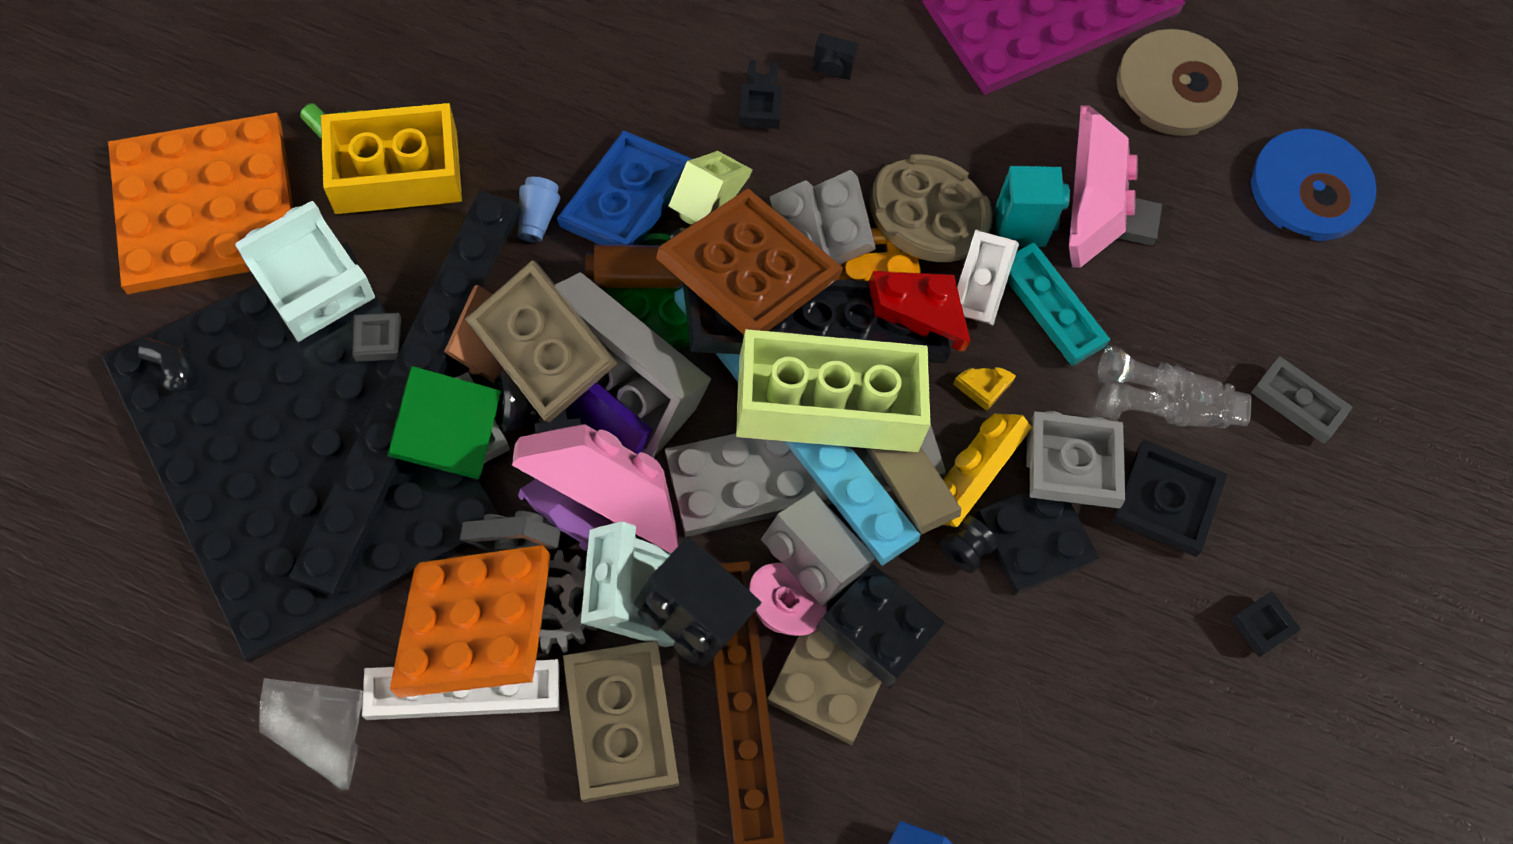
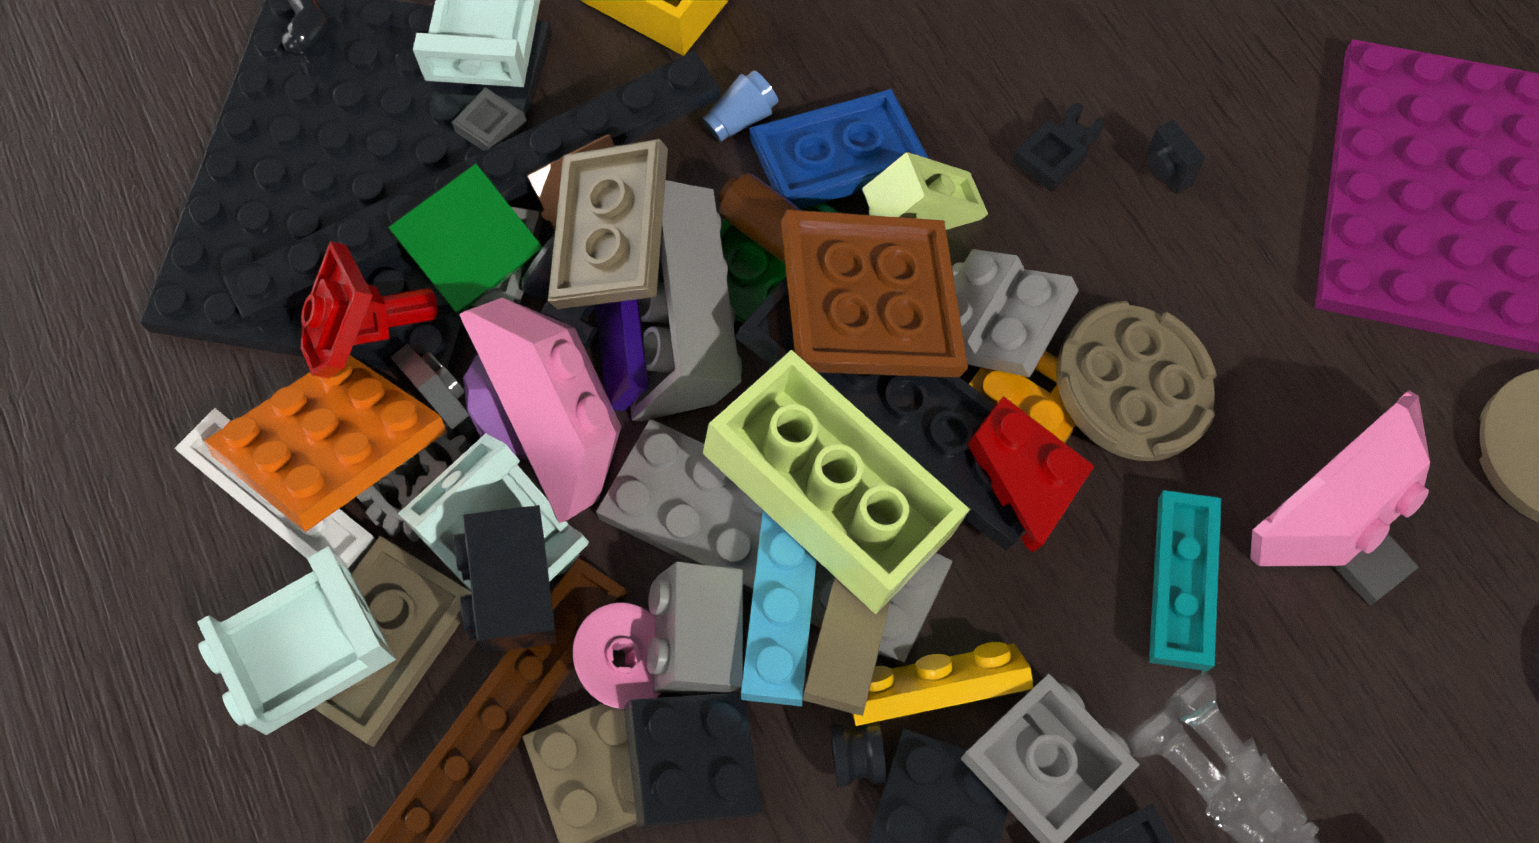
camera: 50 degrees right, 0 degrees up
(313, 725) = (137, 426): clear slope -> none
(411, 530) = (350, 312): none -> red piece
(581, 759) = (295, 646): none -> light aqua panel
(984, 384) = (1033, 606): yellow tile -> none
(985, 275) = (1128, 493): white plate -> none
(1031, 204) = (1246, 455): teal brick -> none

